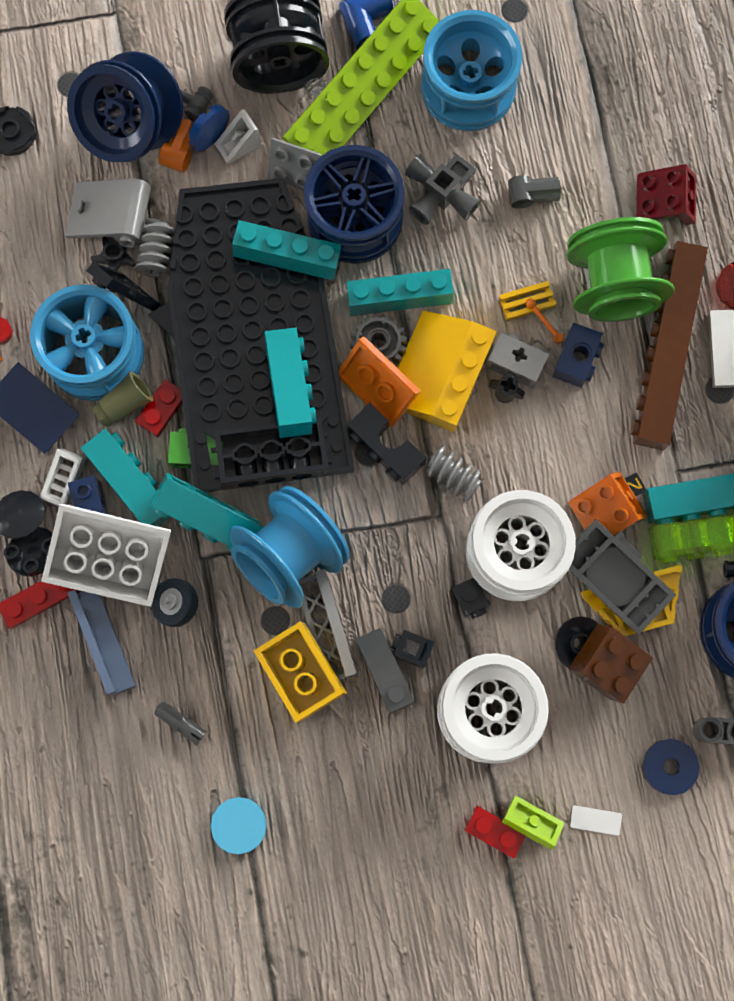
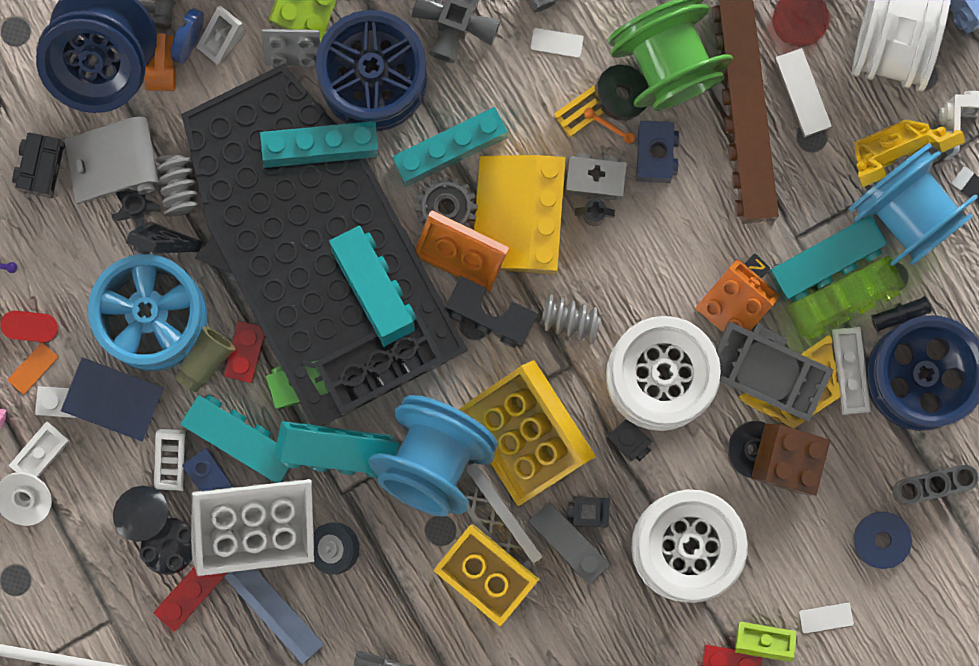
camera: 25 degrees left, 5 degrees up
(46, 194) = (38, 165): none -> black brick
(385, 560) = (532, 432): none -> yellow slope
(522, 238) = (557, 42): none -> white sticker
(551, 294) = (606, 94): none -> black tile
(690, 604) = (851, 370): none -> white tile

